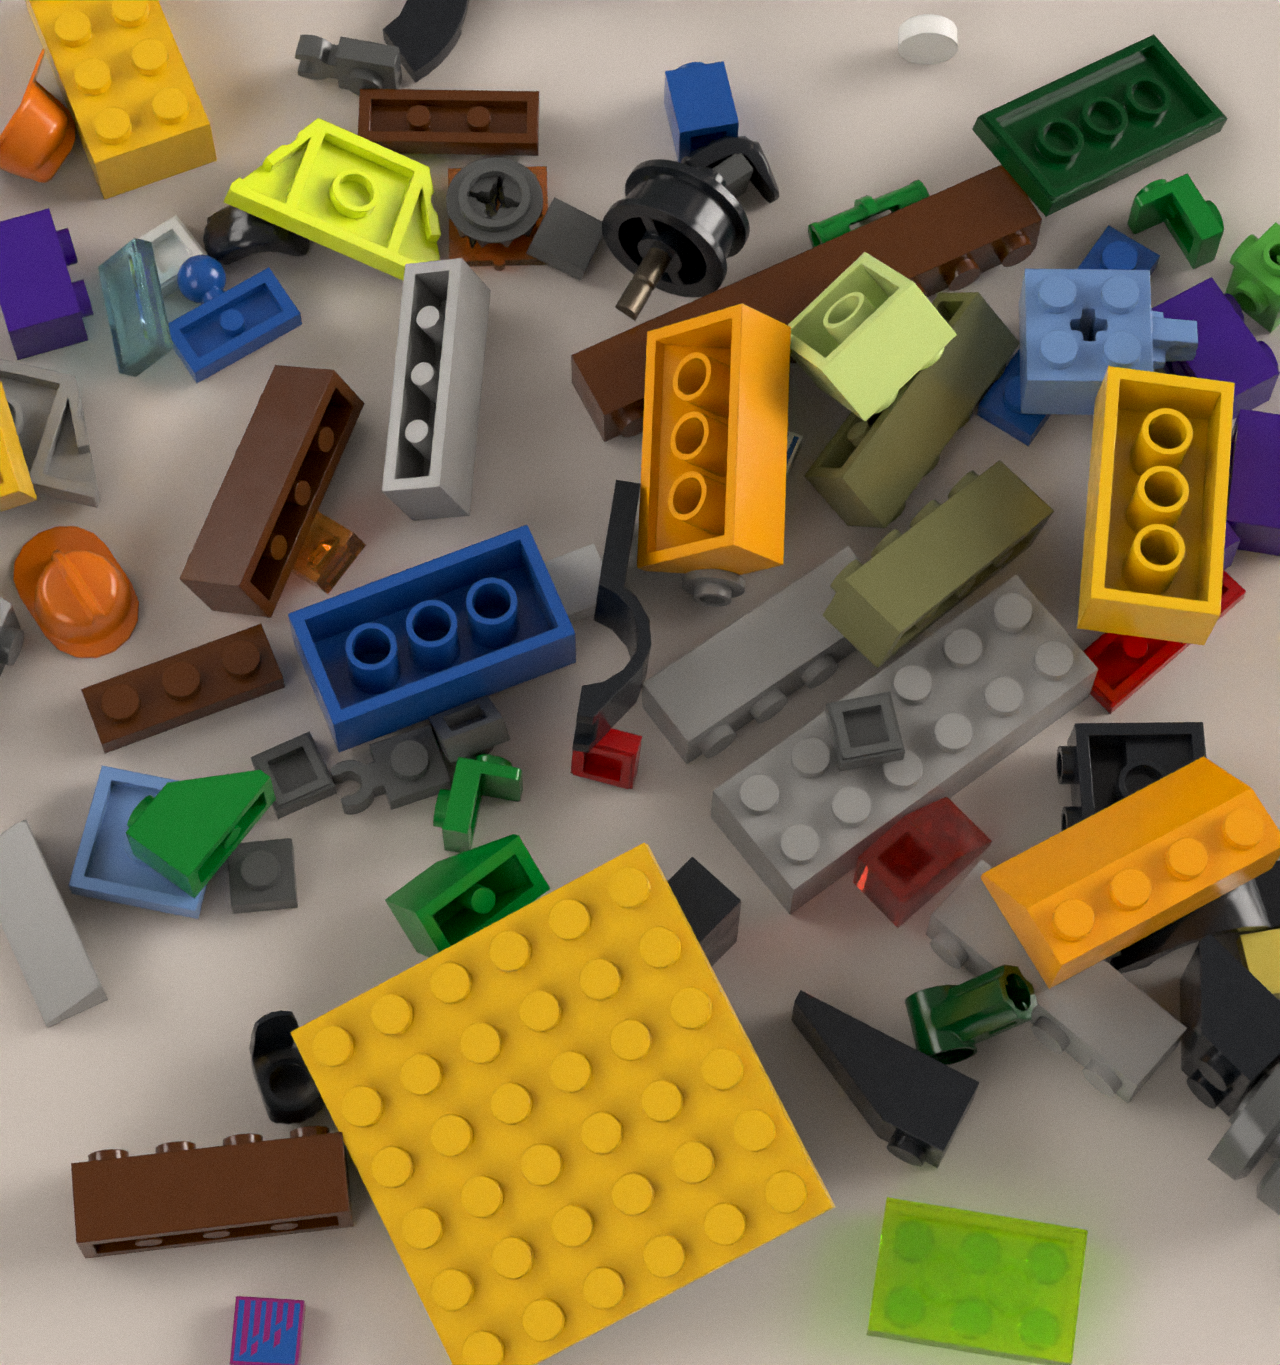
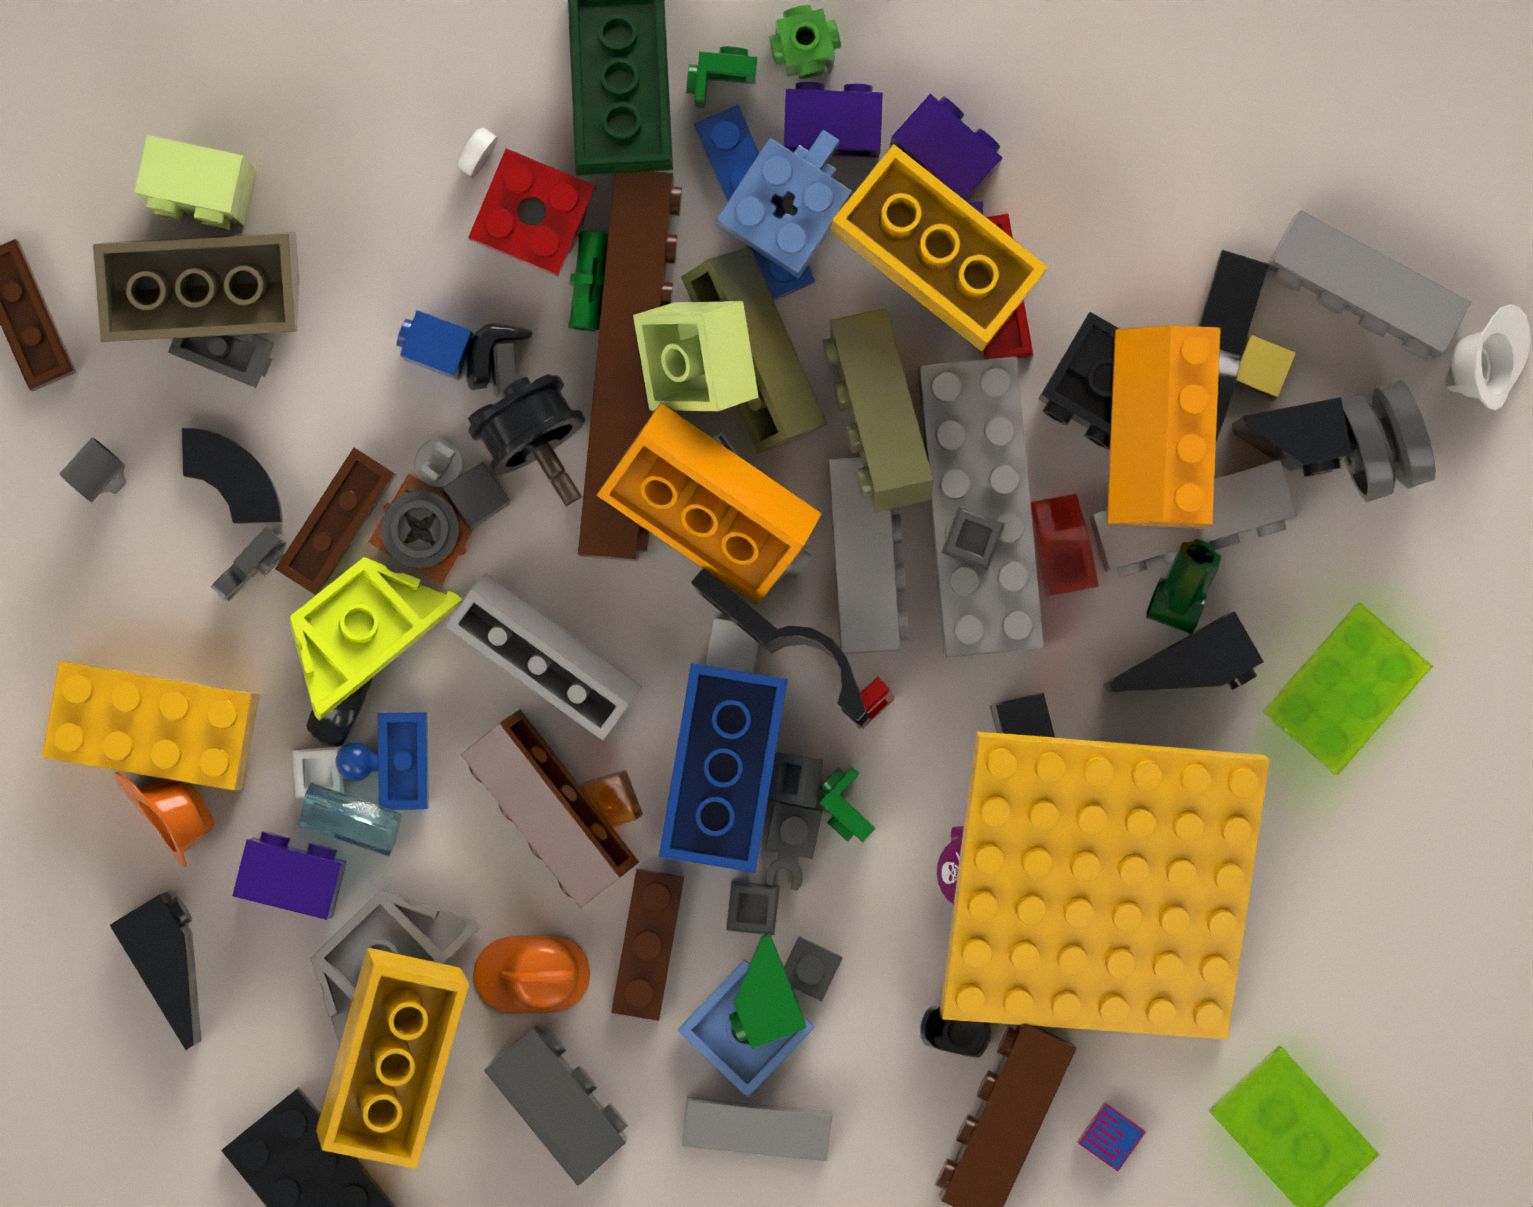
camera: 60 degrees left, 20 degrees up
(466, 894) = (916, 853): green slope -> none
(578, 183) = (438, 463): none -> light grey plate
(903, 117) = (532, 212): none -> red piece

